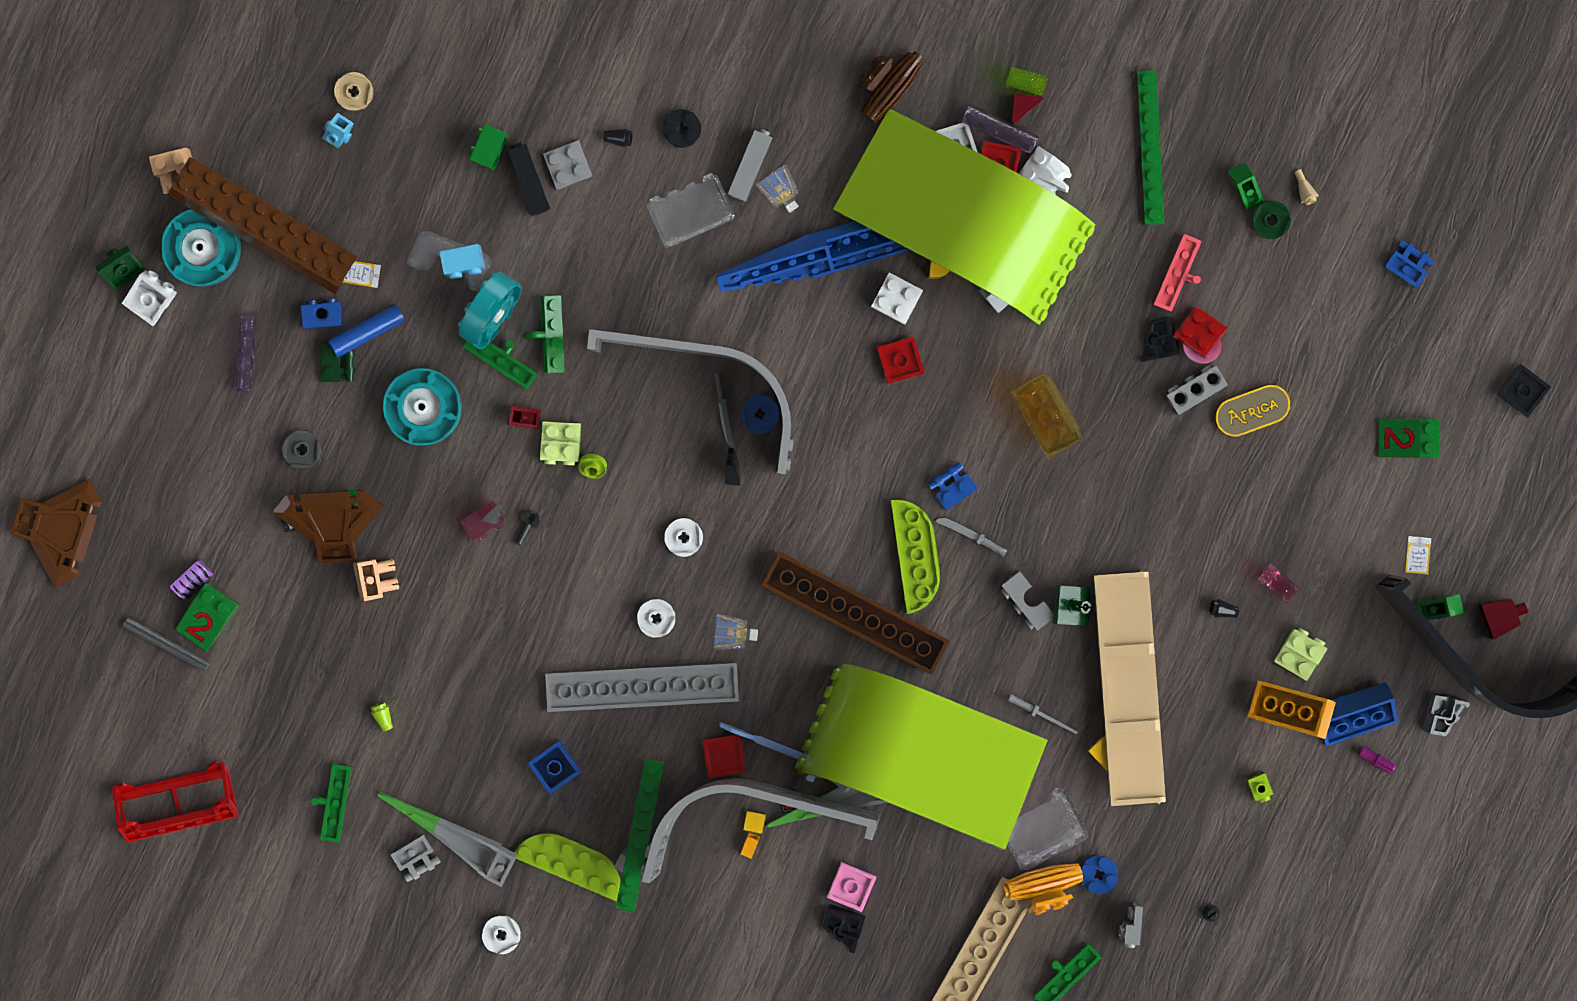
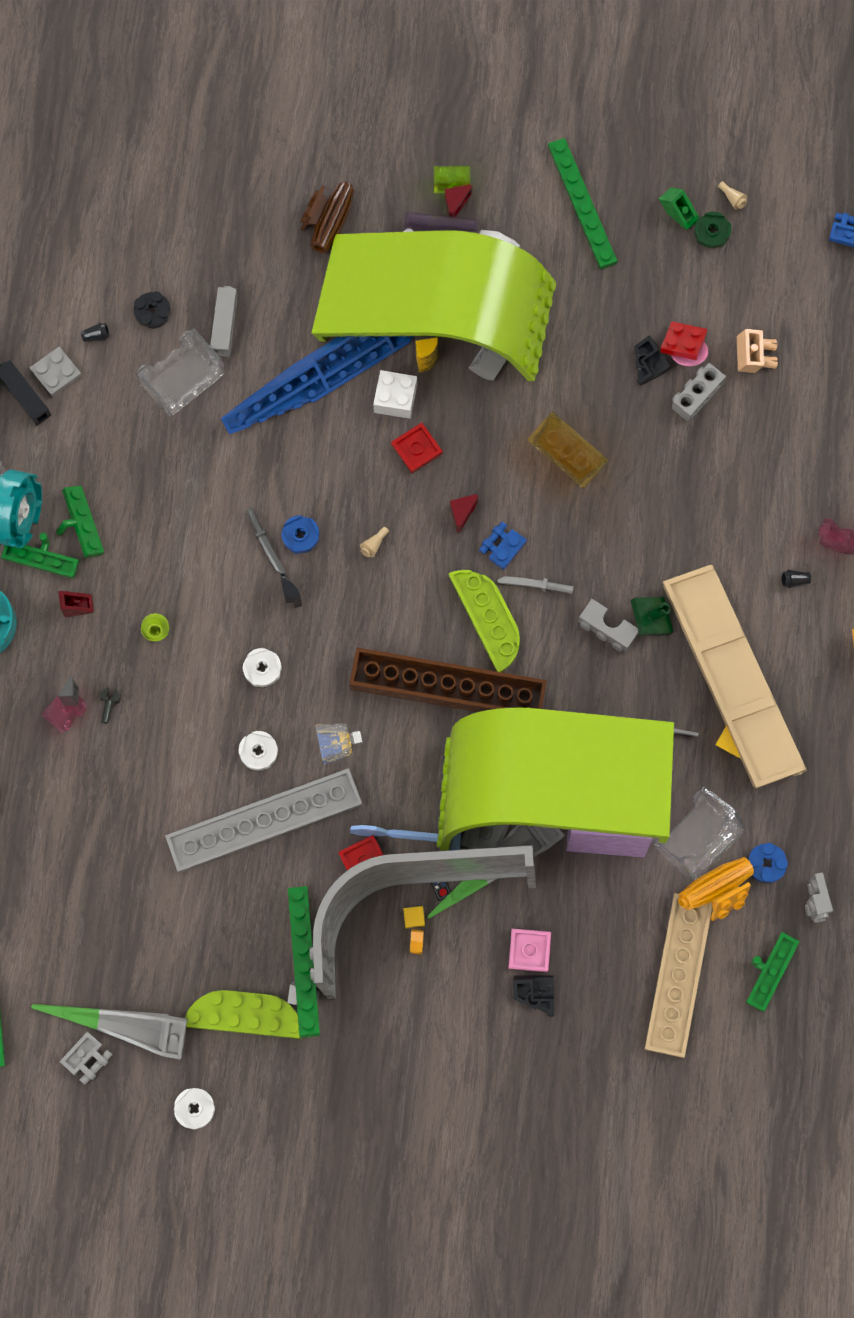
camera: 10 degrees left, 15 degrees down
(382, 715) = (14, 926): lime cone -> none
(555, 767) = (200, 921): blue brick -> none
(560, 442) = (118, 617): yellowish green plate -> none
(597, 337) = (222, 479): light grey panel -> none
(779, 189) = (256, 333): clear torso -> none
(825, 447) = (371, 545): none -> tan cone
(924, 439) = (462, 509): none -> dark red slope
(1178, 273) = (645, 298): coral plate -> none
(1252, 410) = (756, 396): dark tan tile -> none
(1262, 366) = (750, 351): none -> light nougat brick

